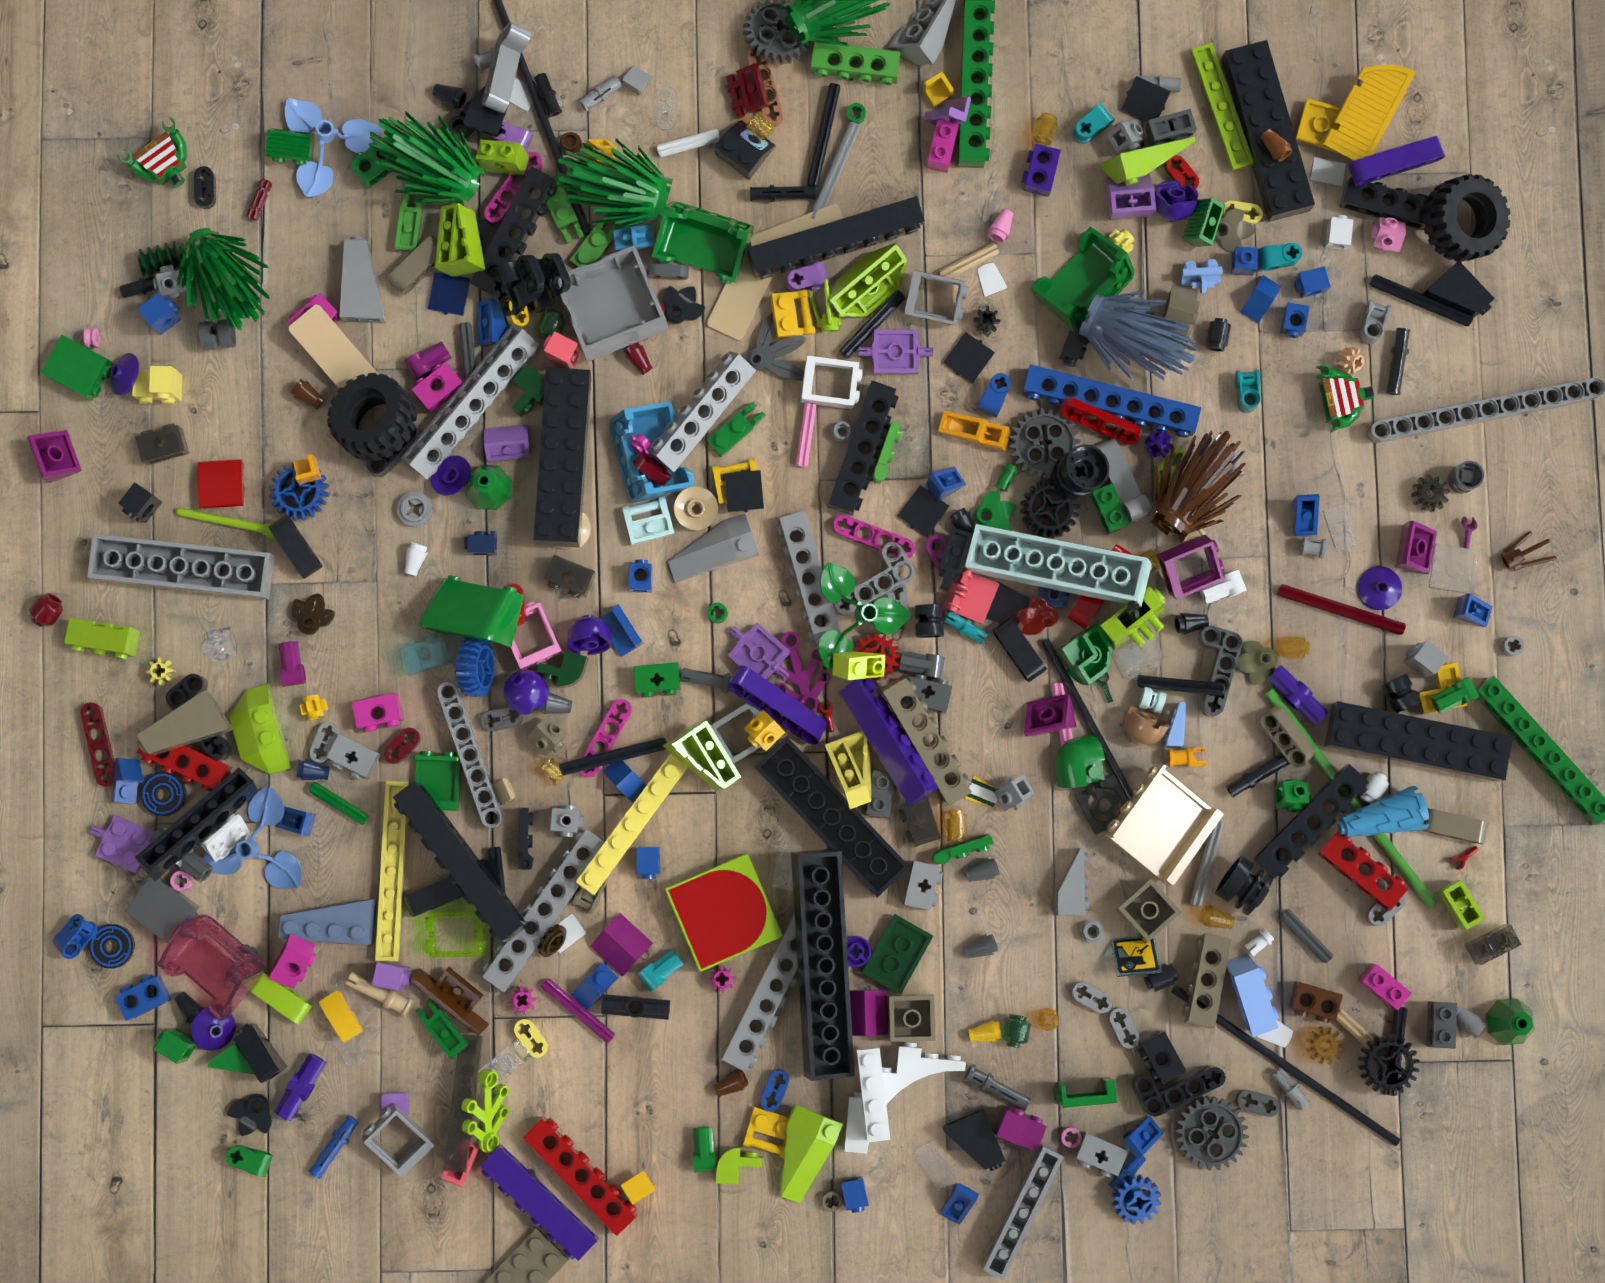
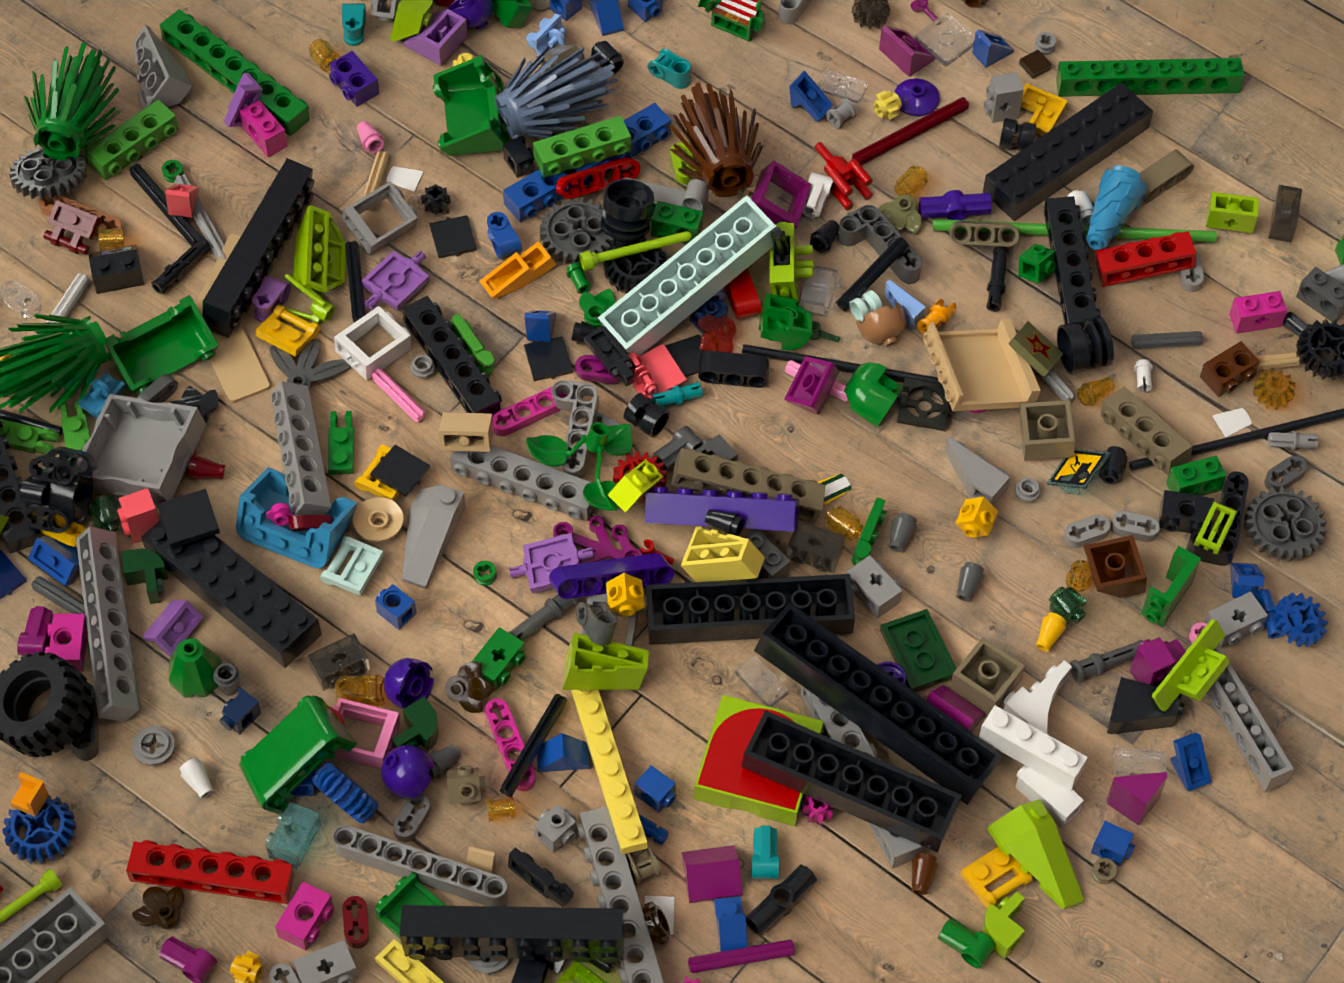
camera: 50 degrees left, 25 degrees down
(295, 546) = (86, 866): black beam -> none
(325, 580) = (275, 889): none -> red brick
(451, 476) = (156, 689): dark purple dish -> none
(490, 512) = (227, 678): none -> dark grey cone
(561, 610) = (361, 689): none -> clear yellow piece
(580, 389) = (188, 518): none -> black tile
(619, 678) = (472, 687): none -> dark brown plate
(619, 879) = (659, 834): none -> blue axle
(623, 634) = (436, 653): blue panel -> none
(730, 726) = (597, 622): none -> dark grey piece
(745, 994) = (851, 781): none -> black brick
(770, 1087) = (965, 840): blue beam -> none
(801, 516) = (466, 432): none -> tan brick
(833, 145) = (181, 199): none -> coral slope
(875, 752) = (725, 522): none -> black cone
(900, 1189) = (1136, 794): none -> magenta slope
(938, 89) = (215, 100): yellow panel -> none
(1014, 793) = (854, 449): light grey brick -> none
(1021, 478) = (589, 260): none -> lime piece
(1024, 1163) = (1195, 670): none -> lime bracket
(1034, 915) = (976, 517): none -> yellow brick
(1071, 1042) = (1117, 567): none -> reddish brown slope
(1105, 380) = (582, 146): none -> bright green brick
(1141, 1095) = (1208, 544): none -> lime tile
(1158, 444) = (661, 152): dark purple gear -> none
(1196, 1044) = (1197, 477): none -> green brick
(1211, 852) = (1035, 348): none -> olive tile
(1252, 995) = (1188, 407): light blue wedge -> none
(1254, 593) = (844, 175): none -> red plant
(1348, 575) = (887, 104): none -> light yellow gear
(1459, 693) = (1053, 95): green piece -> none
(1464, 857) = (1193, 190): red hand -> none
(1486, 653) = (1035, 64): none -> dark brown tile

